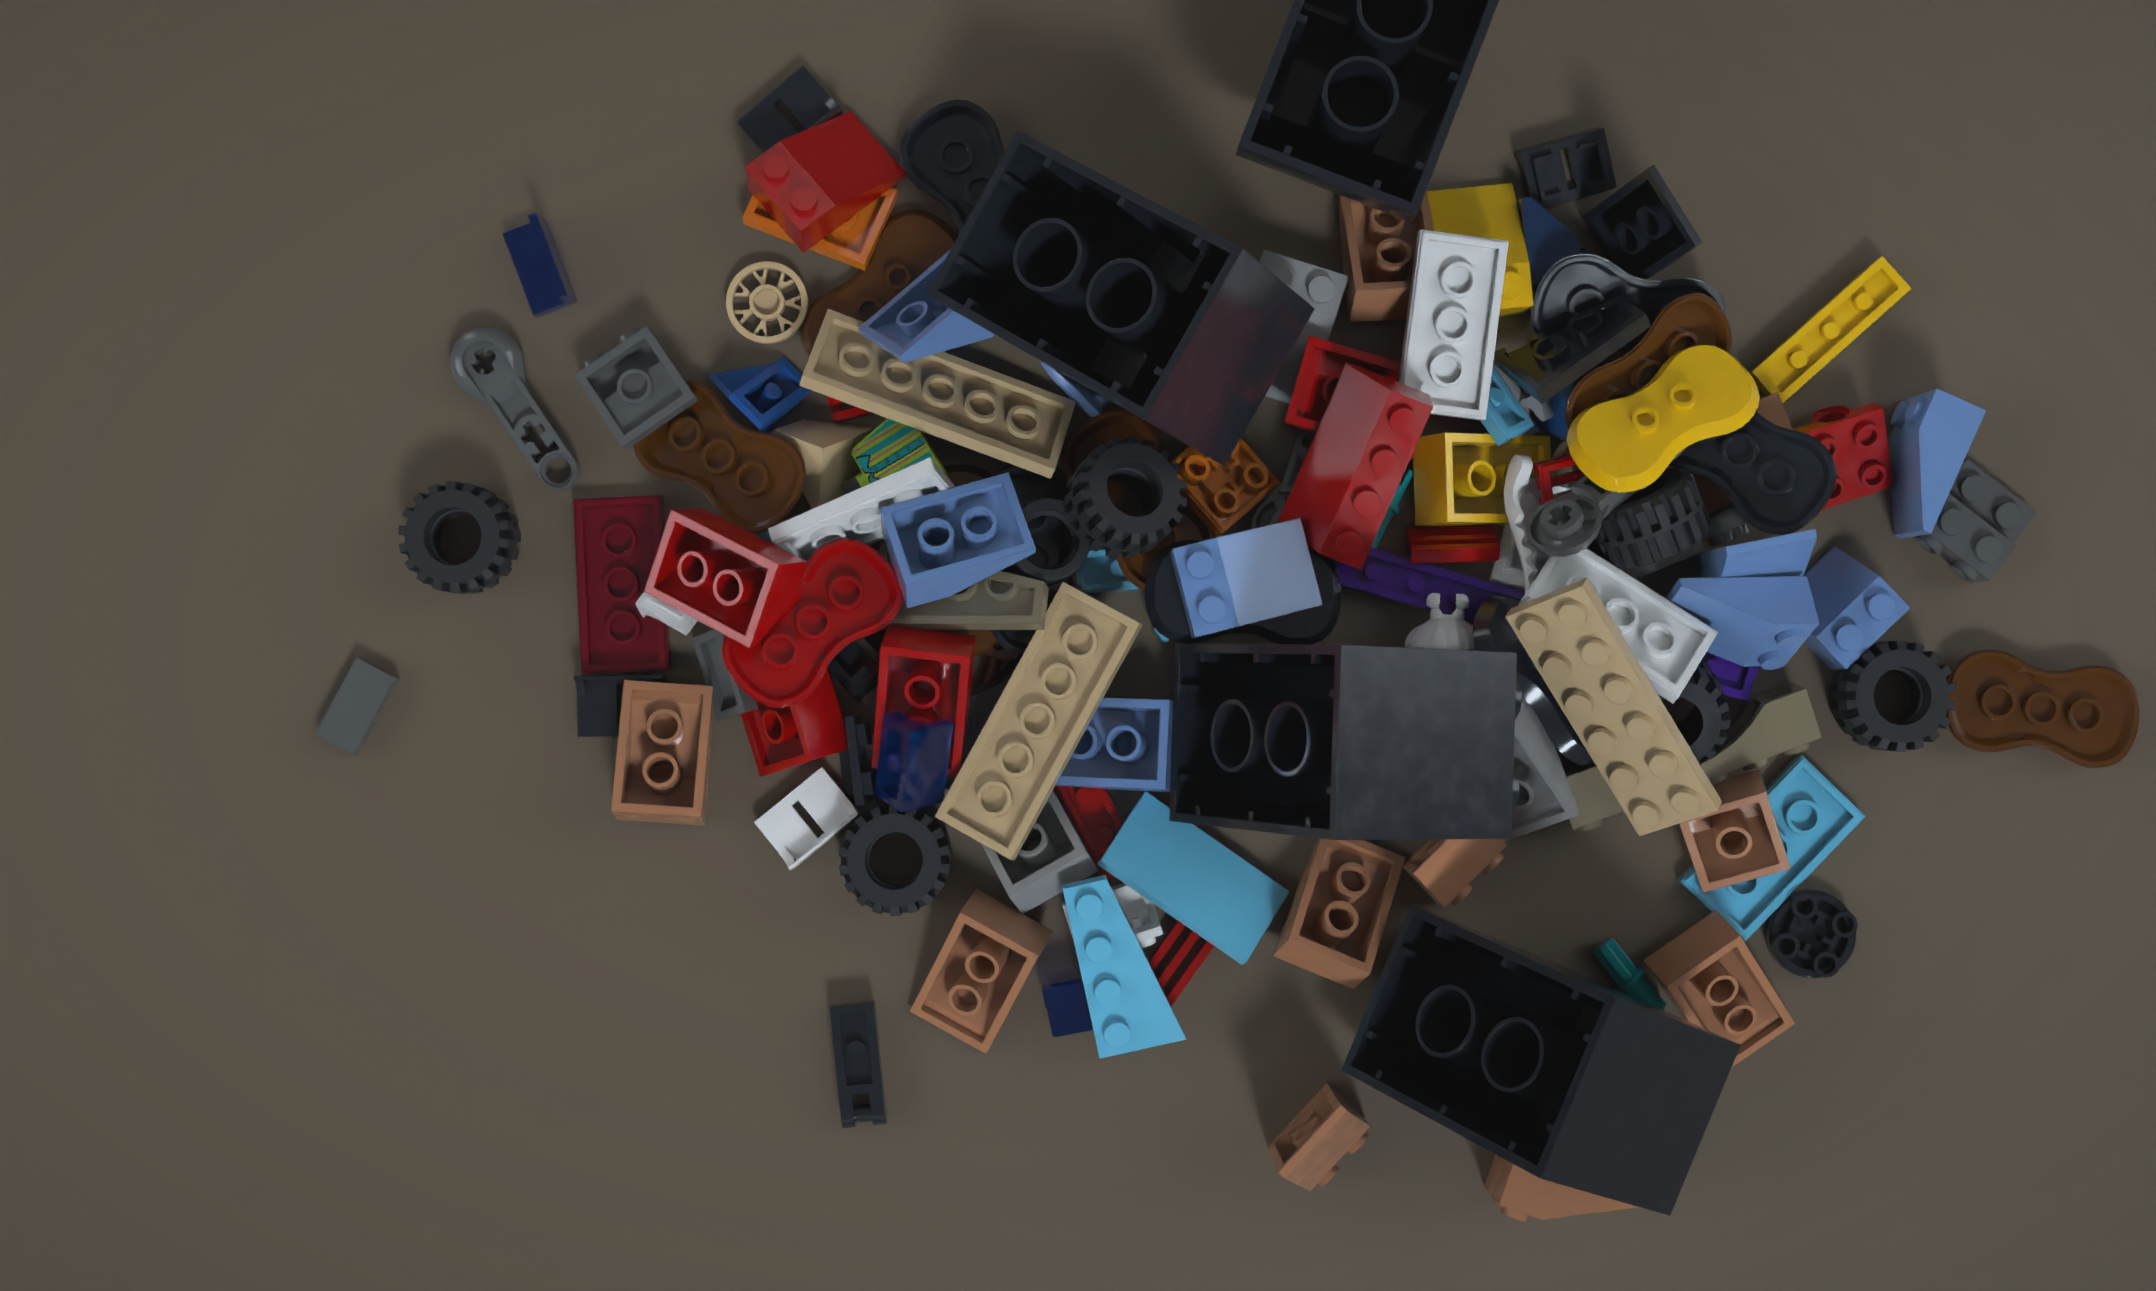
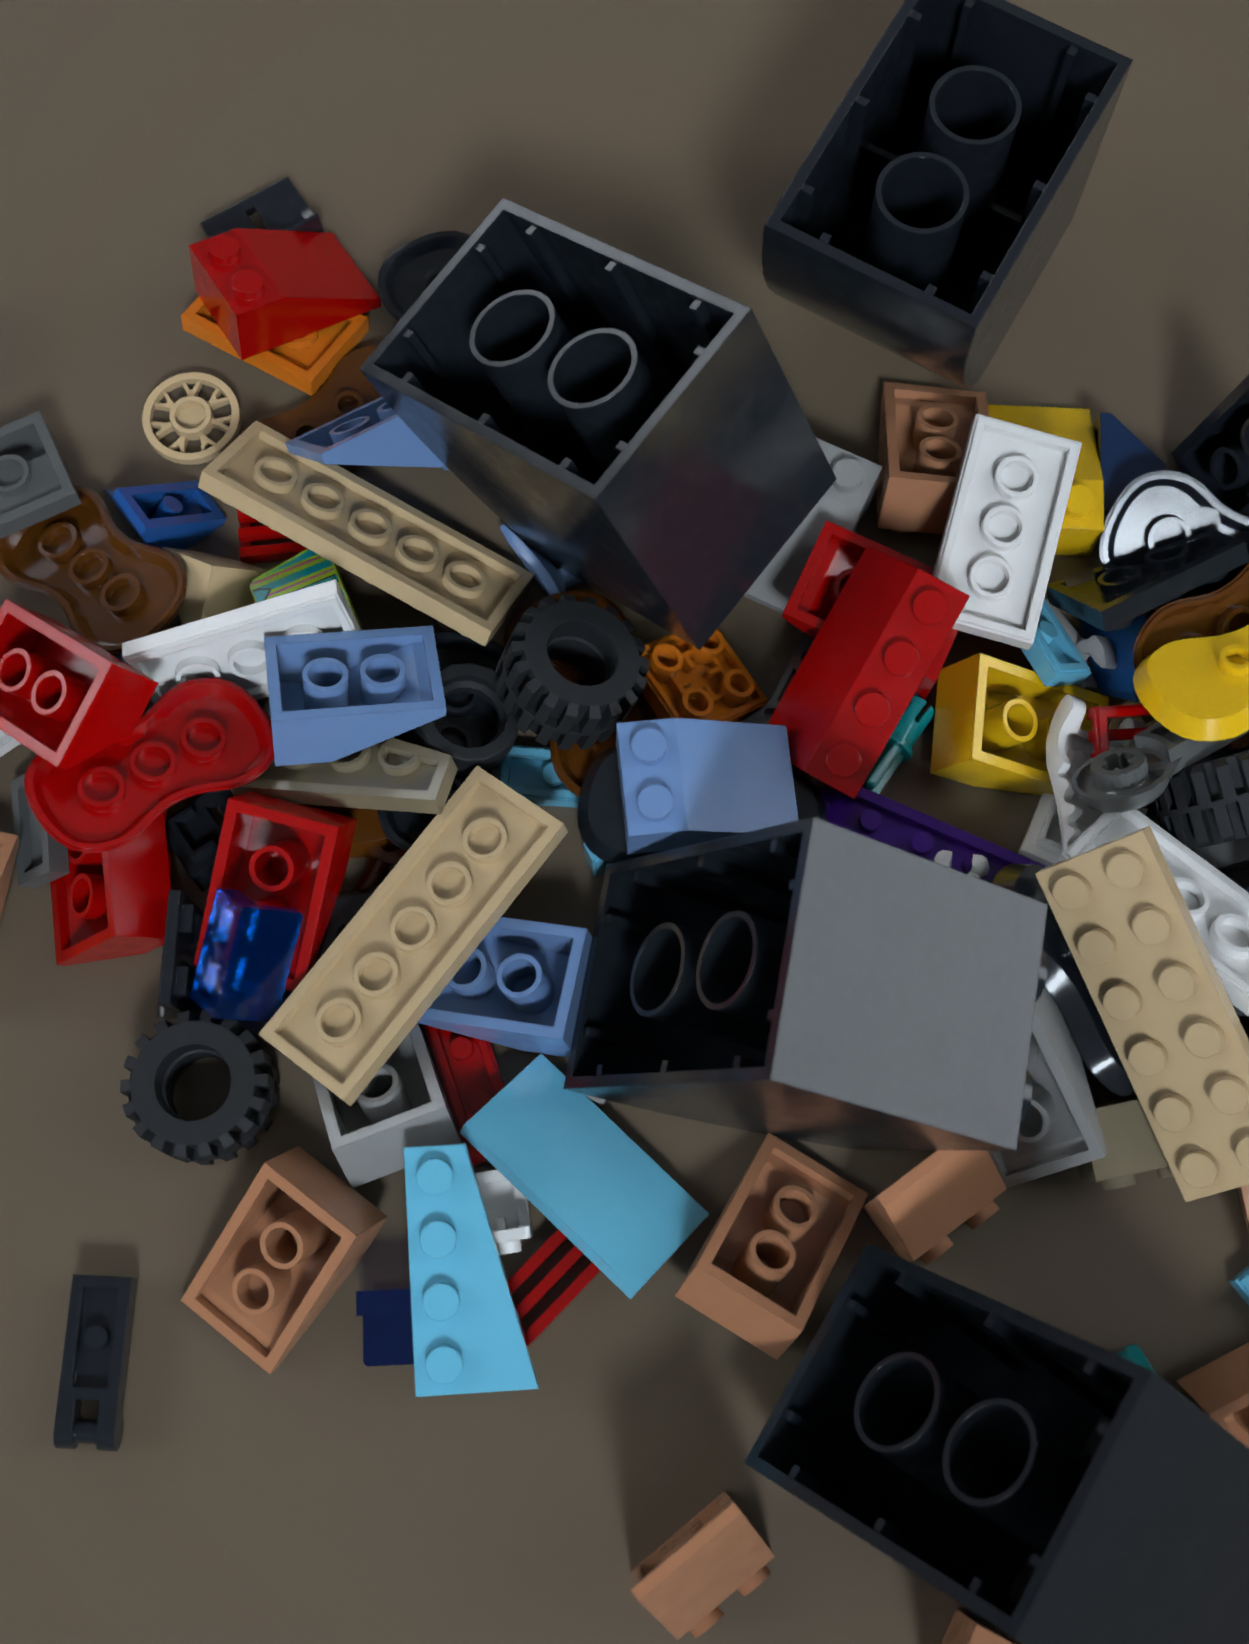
camera: 10 degrees right, 15 degrees down
(791, 833) = (75, 1035): white piece -> none
(1452, 544) = (974, 803): red tile -> none
(1588, 161) = (1181, 392): black piece -> none

